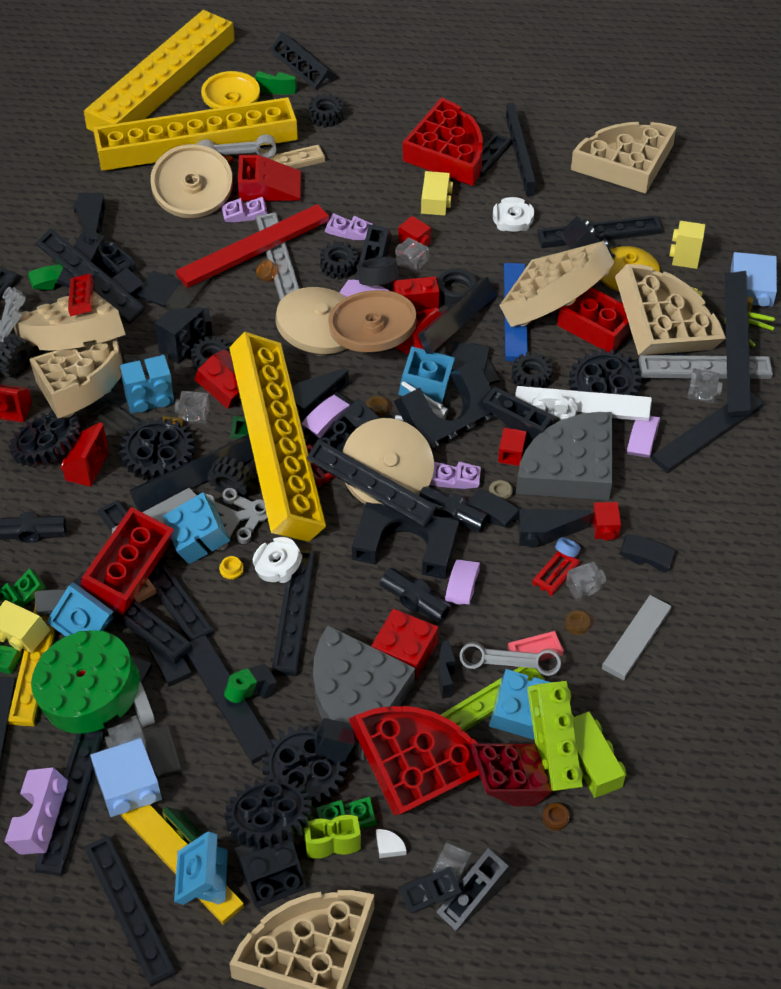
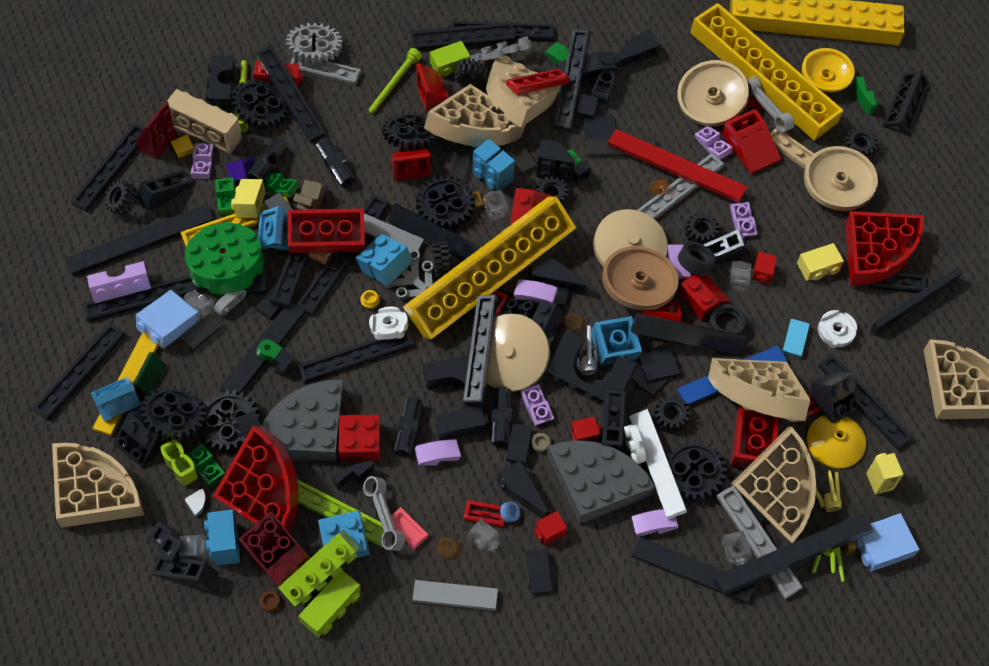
camera: 60 degrees right, 10 degrees up
(58, 567) = (310, 196): none -> dark tan brick
(356, 137) = (840, 178): none -> tan dish
(460, 823) = (222, 537): none -> dark azure piece
(503, 248) = (795, 338): none -> medium azure tile

